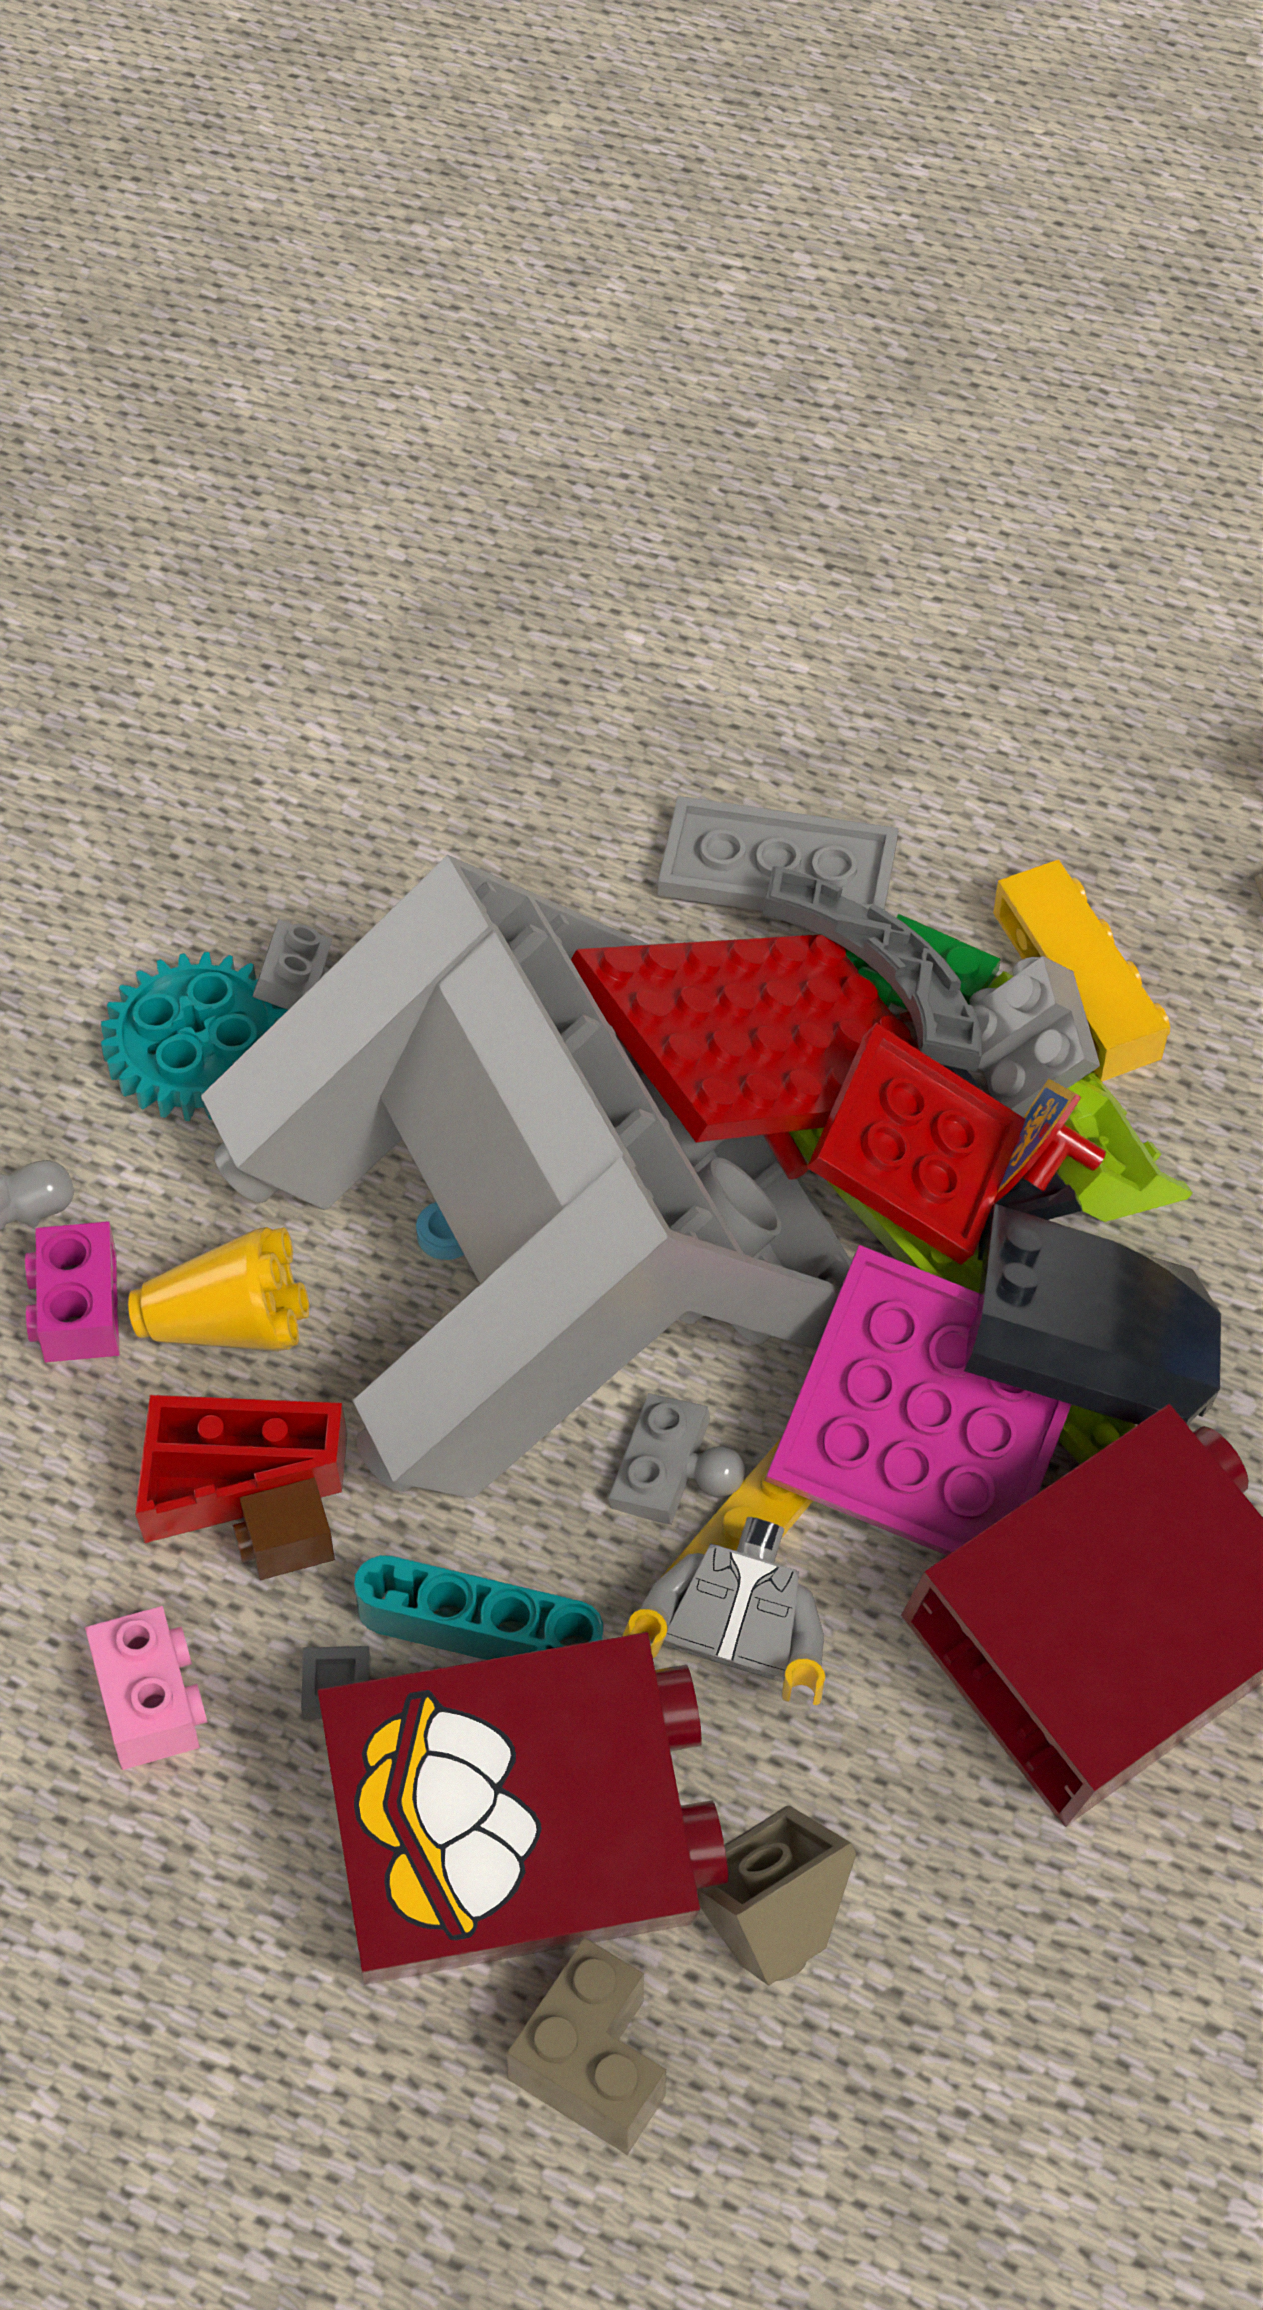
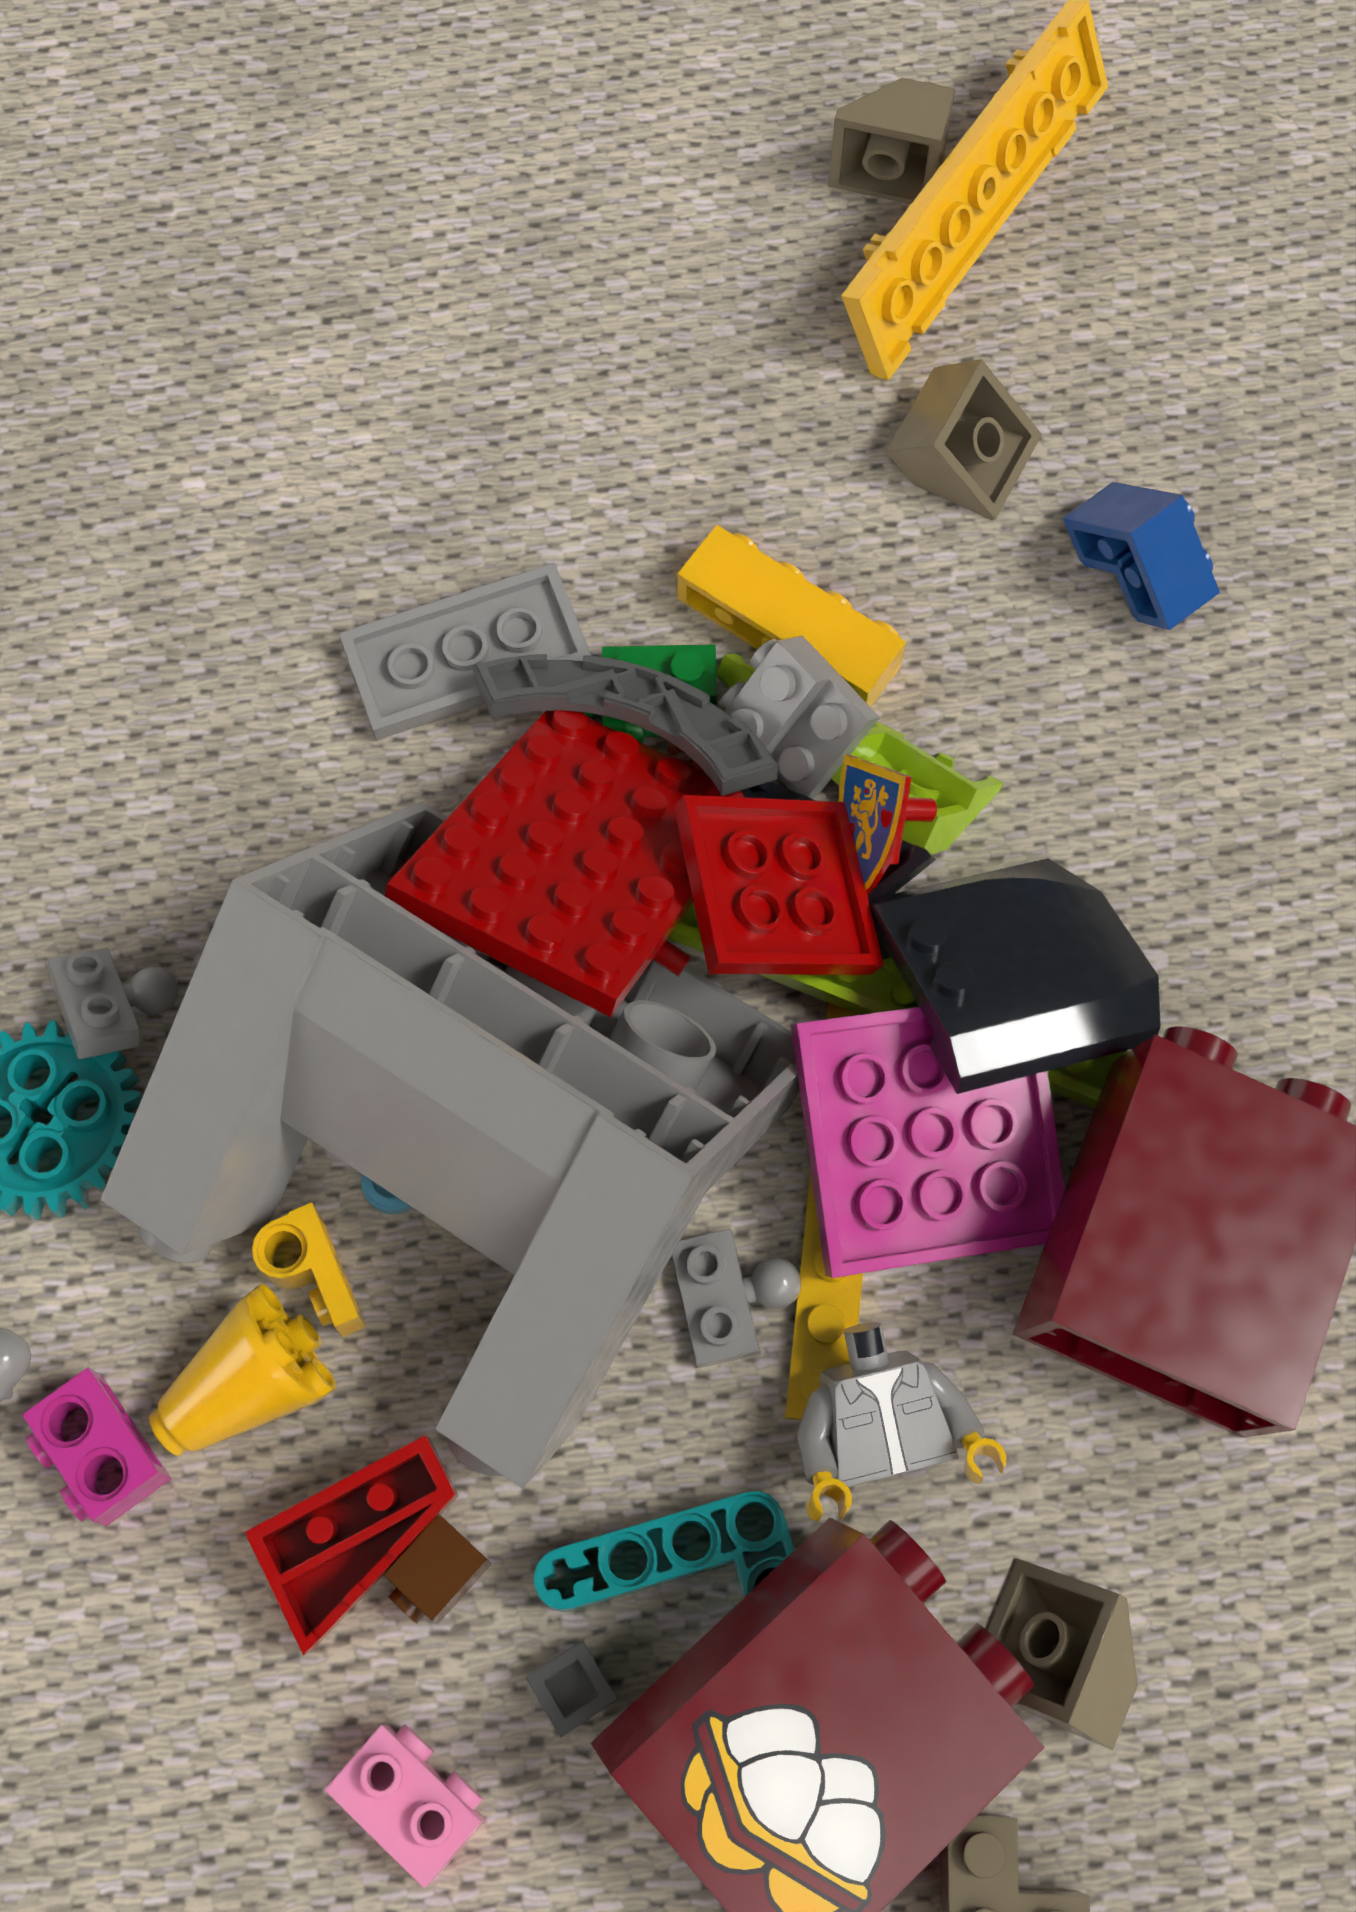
camera: 30 degrees left, 15 degrees up
(336, 1255) = (318, 1263): none -> yellow plate

